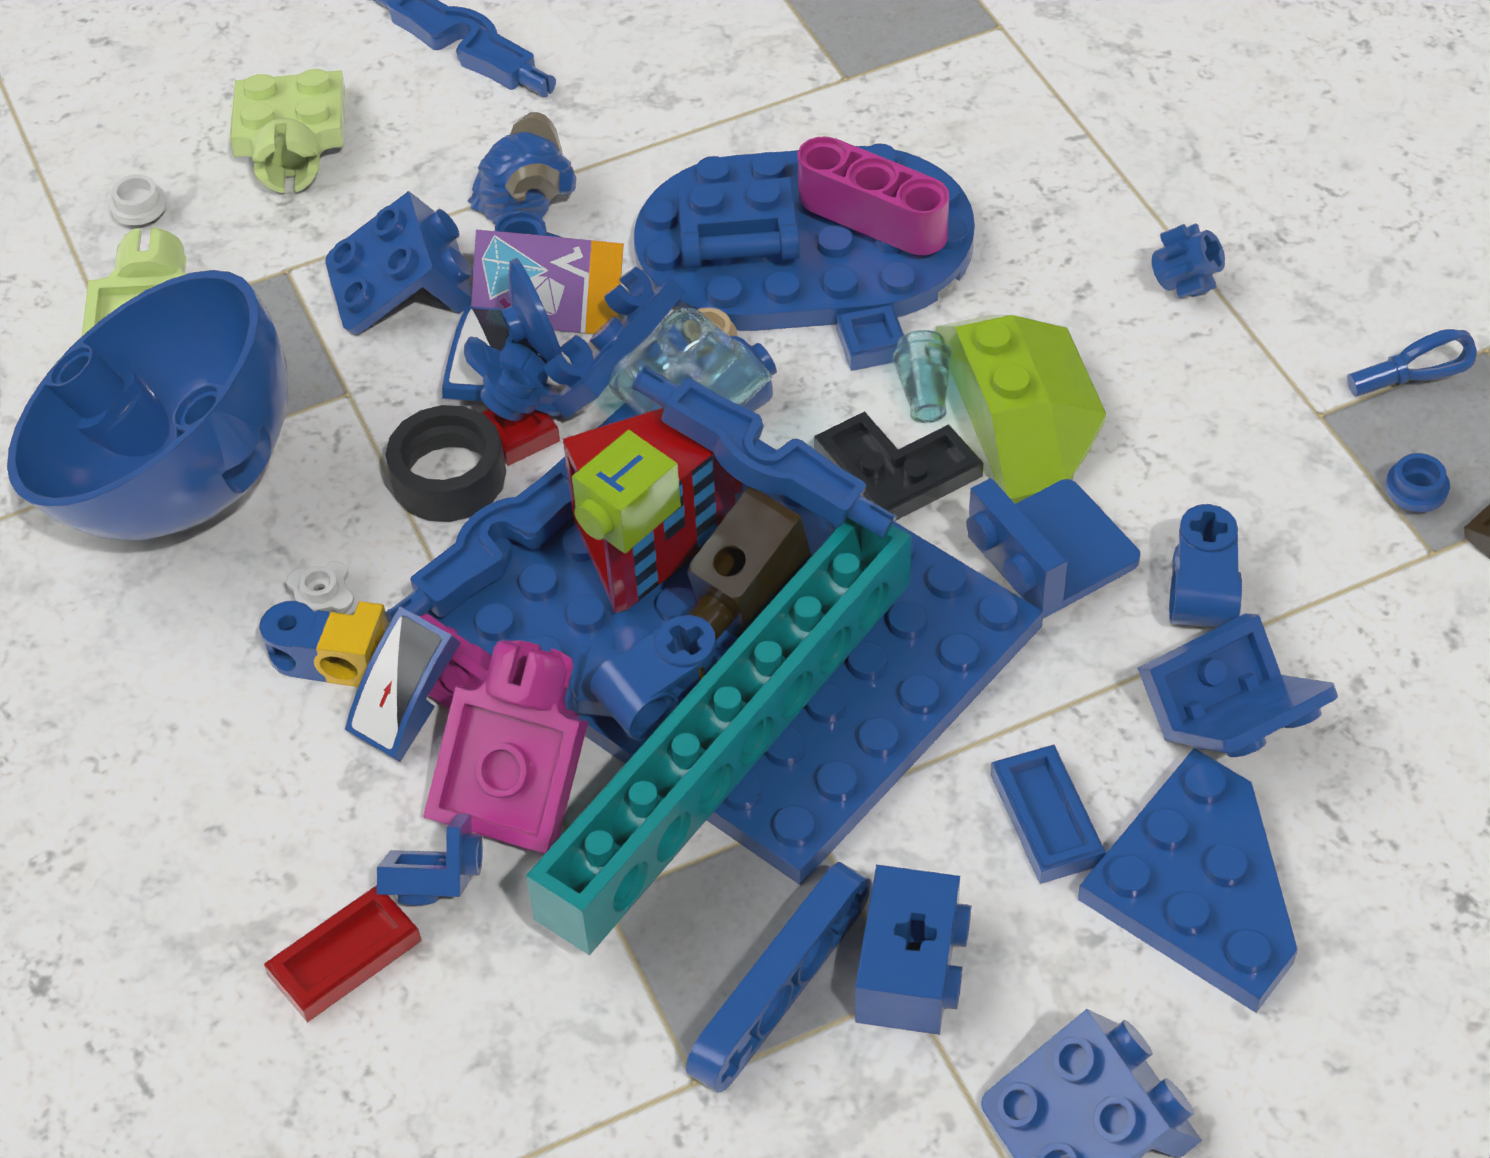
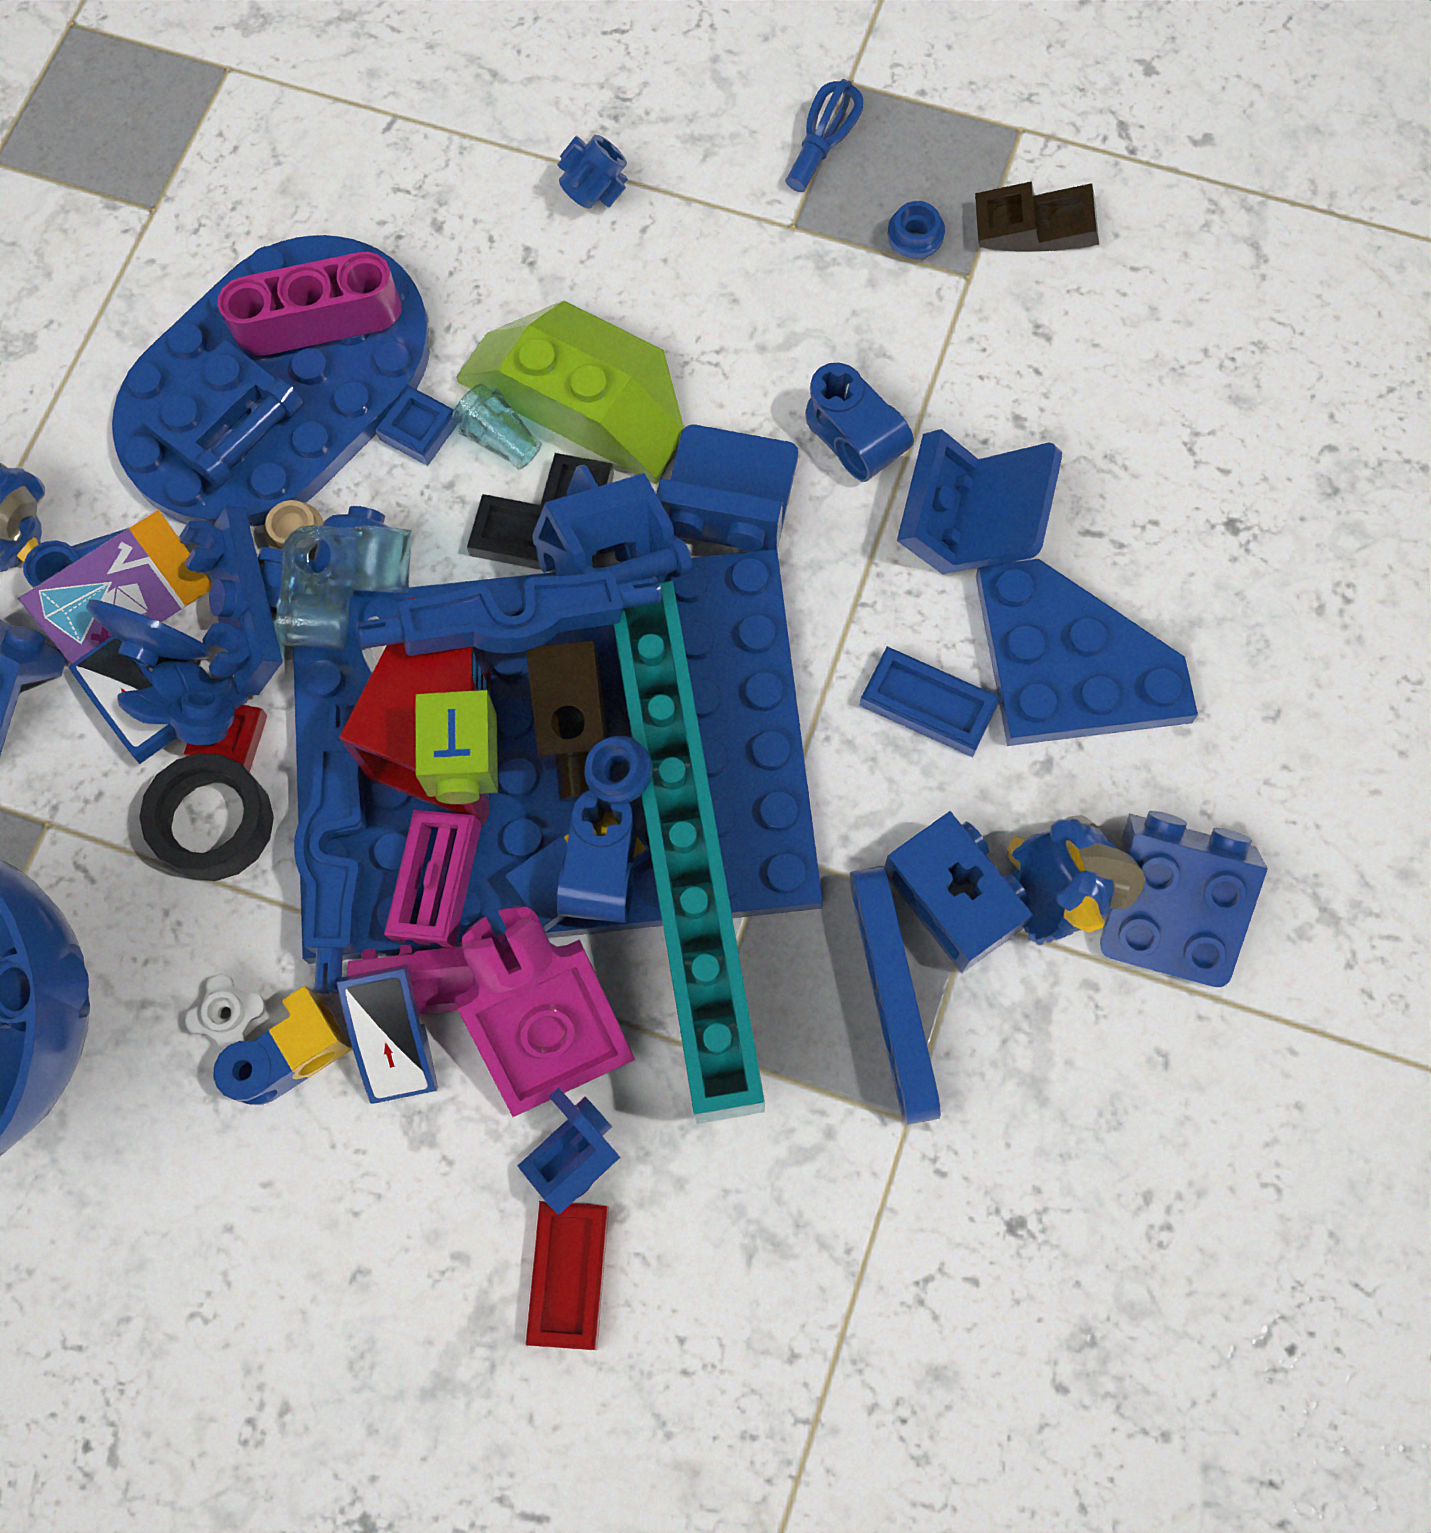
camera: 45 degrees left, 20 degrees up
(543, 606) = (456, 885): none -> dark pink tile
(726, 612) = (605, 757): none -> blue plate
(920, 469) = (609, 518): none -> blue piece
(1011, 1009) = (1073, 878): none -> blue hair

